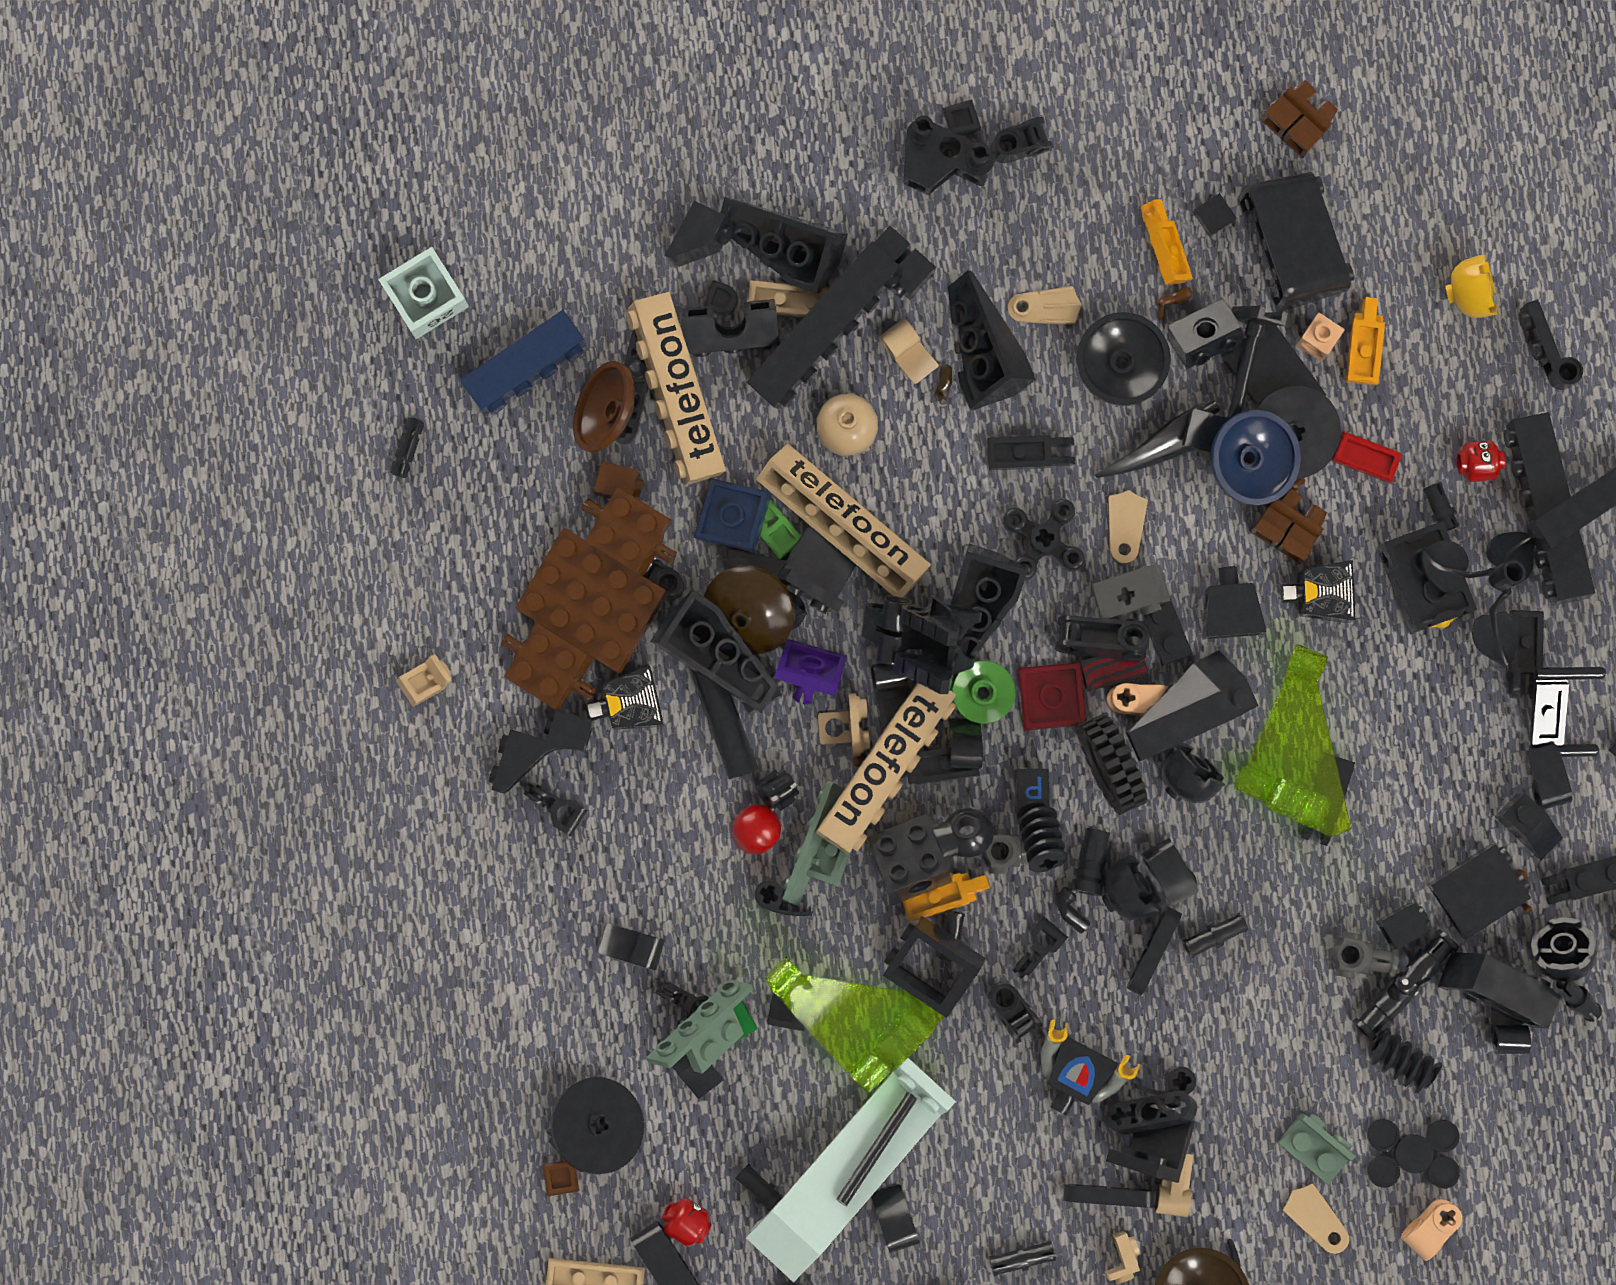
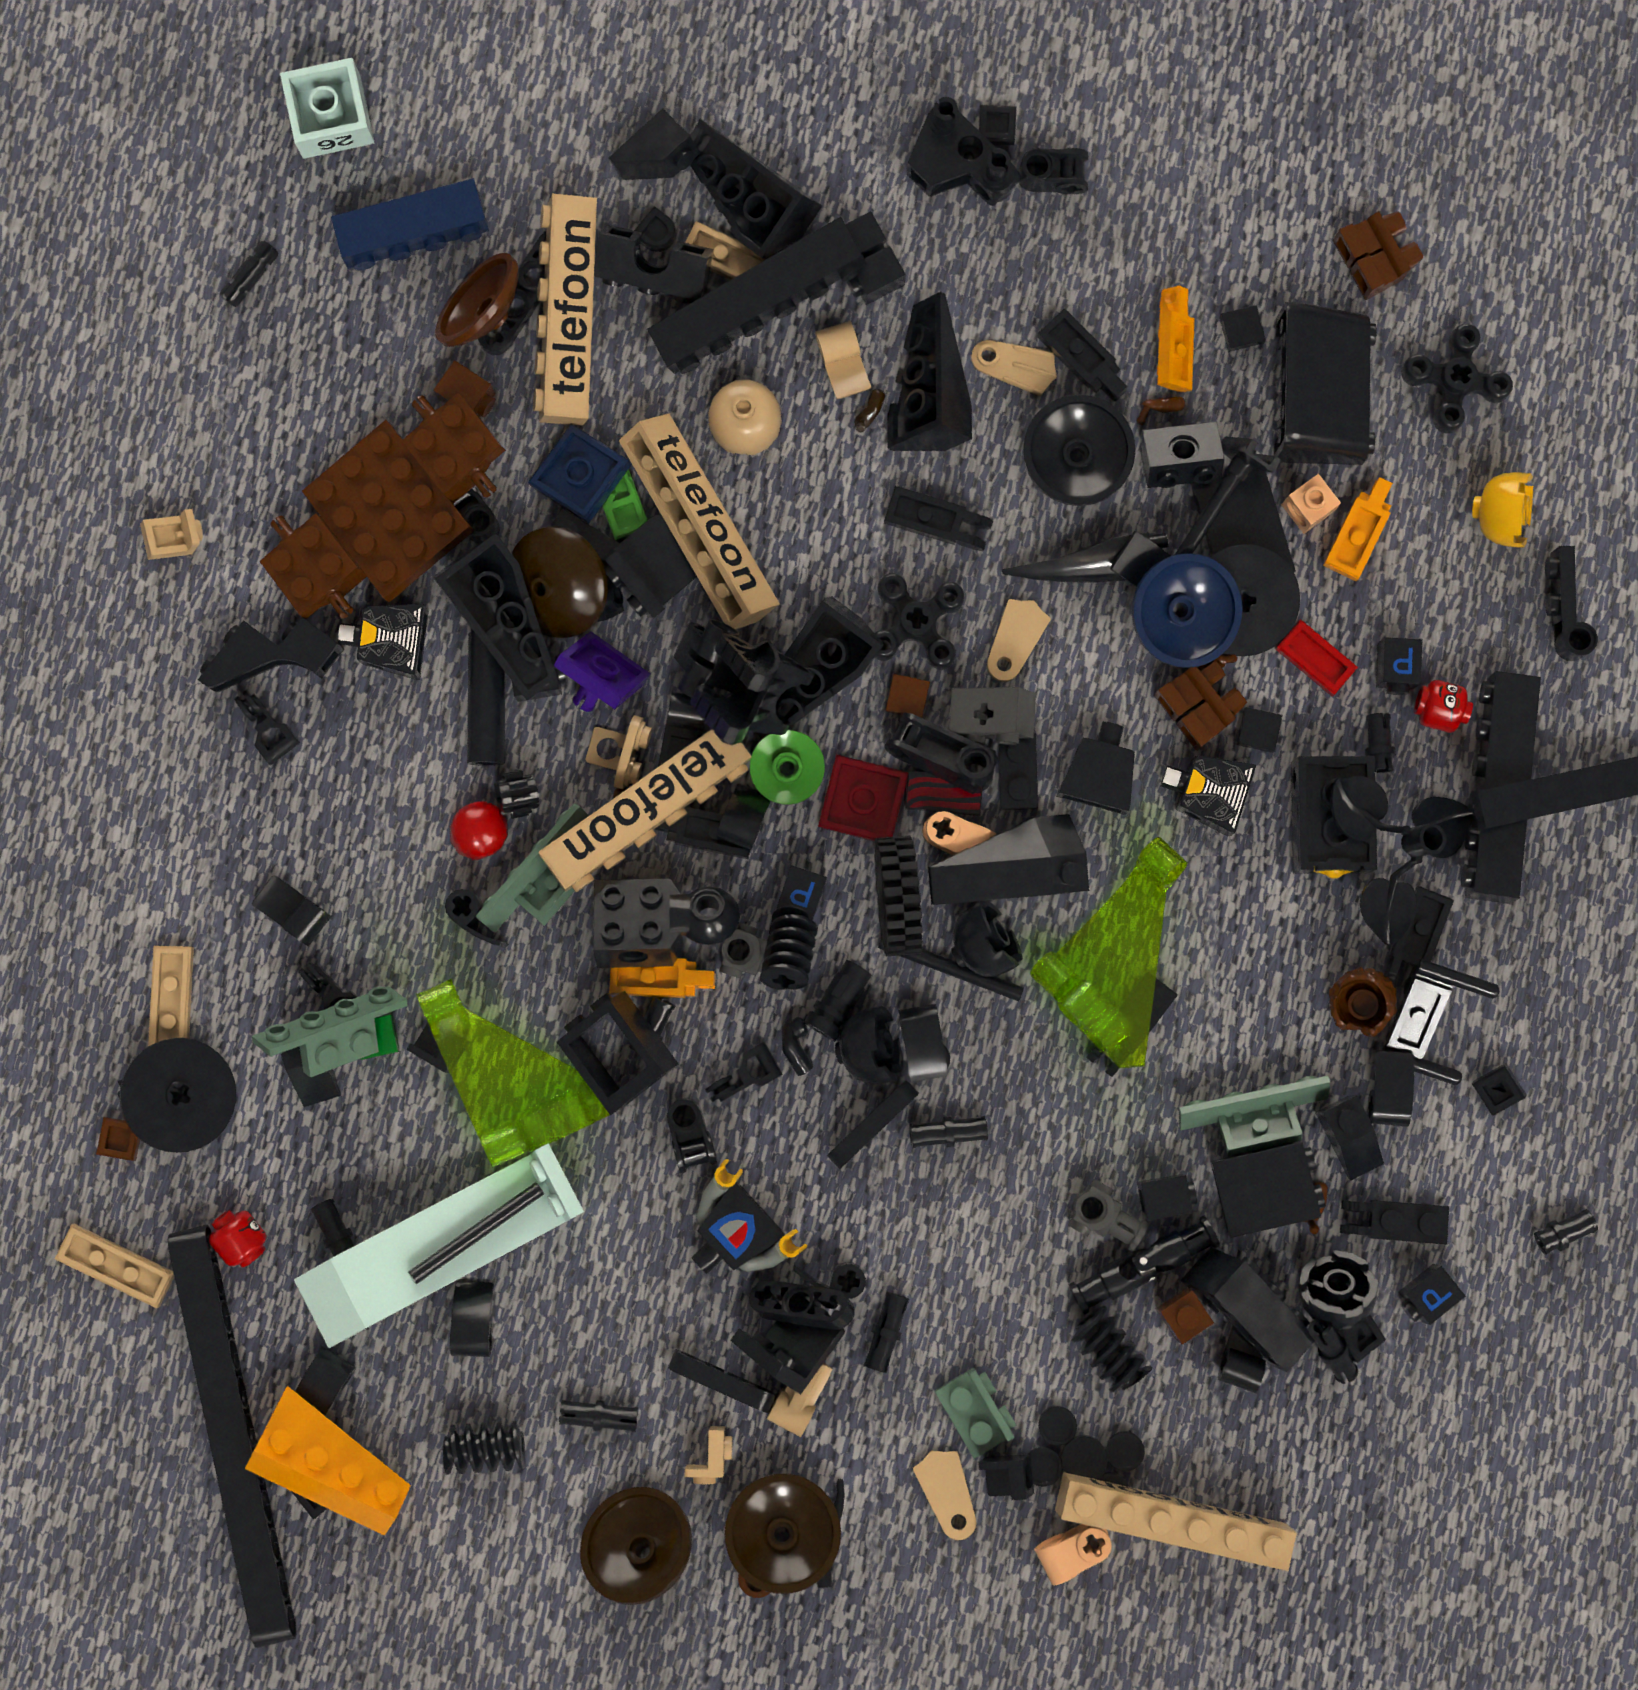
camera: 25 degrees right, 0 degrees up
(559, 1047) = (170, 993): none -> tan tile
(1057, 601) = (907, 695): none -> reddish brown tile
(1097, 280) = (1082, 355): none -> black hinge
(1156, 804) = (953, 969): none -> black bar
(1223, 1110) = (886, 1332): none -> black pin
(1343, 530) = (1259, 730): none -> black tile
(1360, 1188) = (1008, 1476): none -> black panel
(1395, 184) = (1451, 391): none -> black gear
(1434, 440) = (1399, 665): none -> black brick
(1452, 837) = (1257, 1117): none -> sand green bracket
(1452, 1013) = (1184, 1315): none -> reddish brown brick
(1501, 716) = (1363, 1001): none -> reddish brown hair
(1503, 1176) = (1175, 1521): none -> tan brick
(1596, 981) = (1362, 1338): none -> black tile

